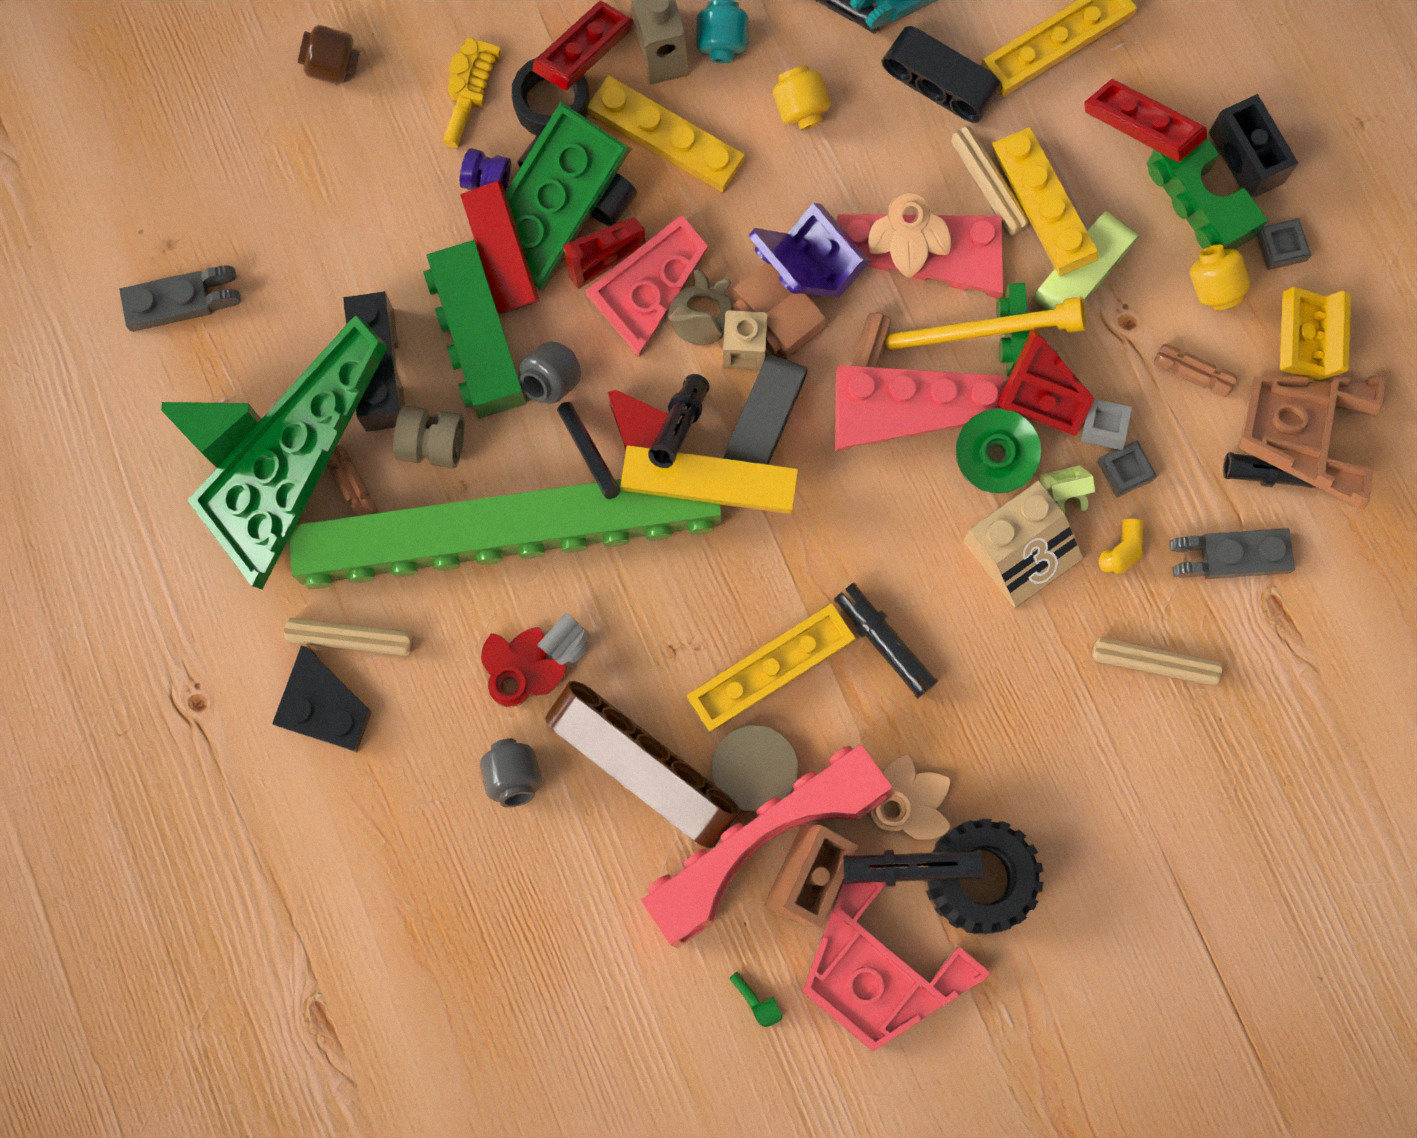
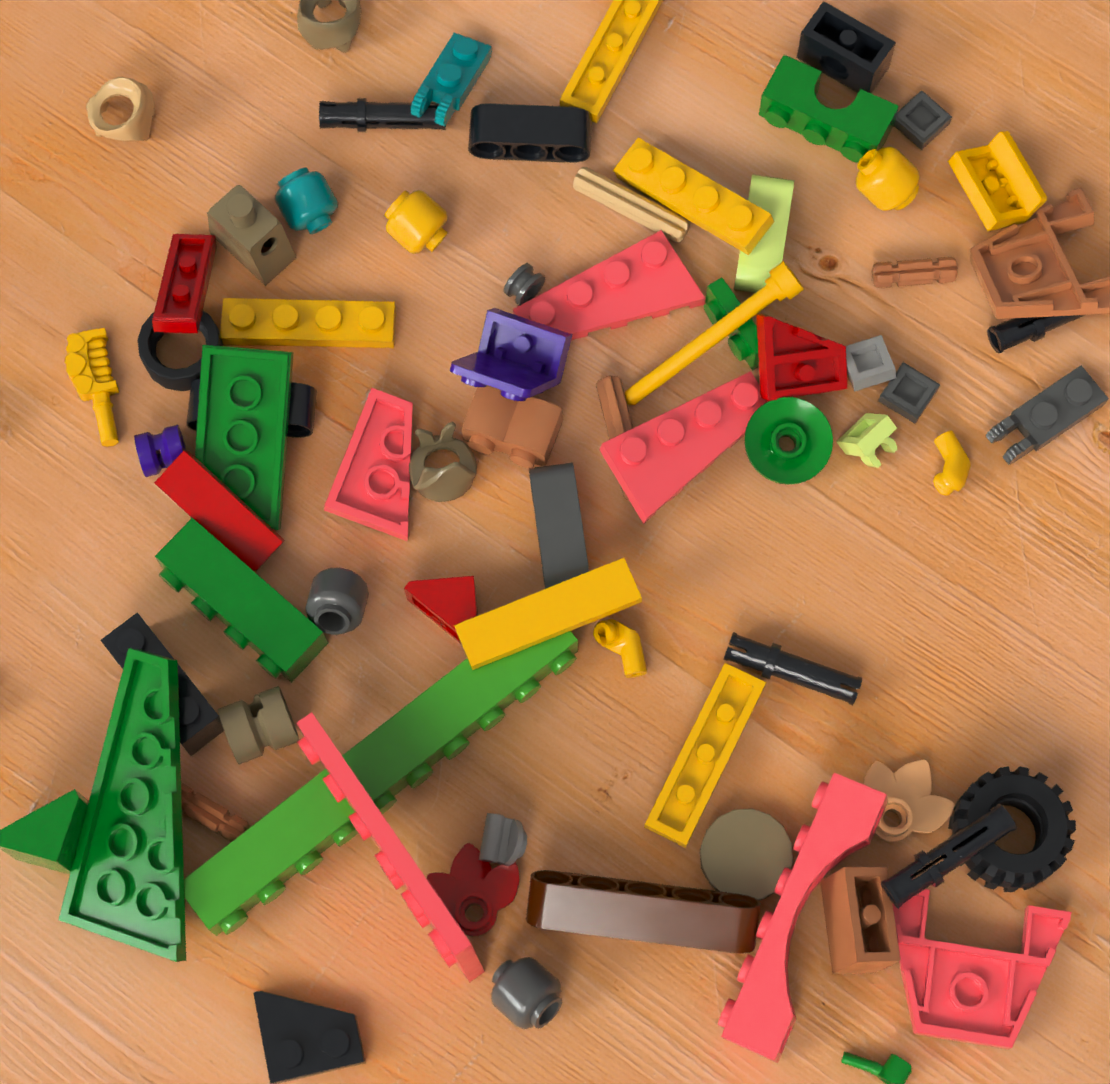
camera: 30 degrees left, 5 degrees down
(348, 637) = (292, 958): tan axle -> none
(464, 602) = (393, 857): none -> coral wing
(588, 450) = (418, 651): black bar -> none
(602, 250) = (318, 460): red wing -> none
(667, 445) = (485, 564): black pin -> none
(744, 340) = (500, 469): tan bracket -> none
(761, 538) = (623, 642): none -> yellow arm
(859, 198) = (524, 284): none -> dark grey bush
(909, 240) = (596, 296): light nougat plate -> none
(1024, 544) = (863, 511): tan slope -> none
(1145, 120) = (738, 76): red tile -> none
(1157, 661) = (1040, 548): tan axle -> none

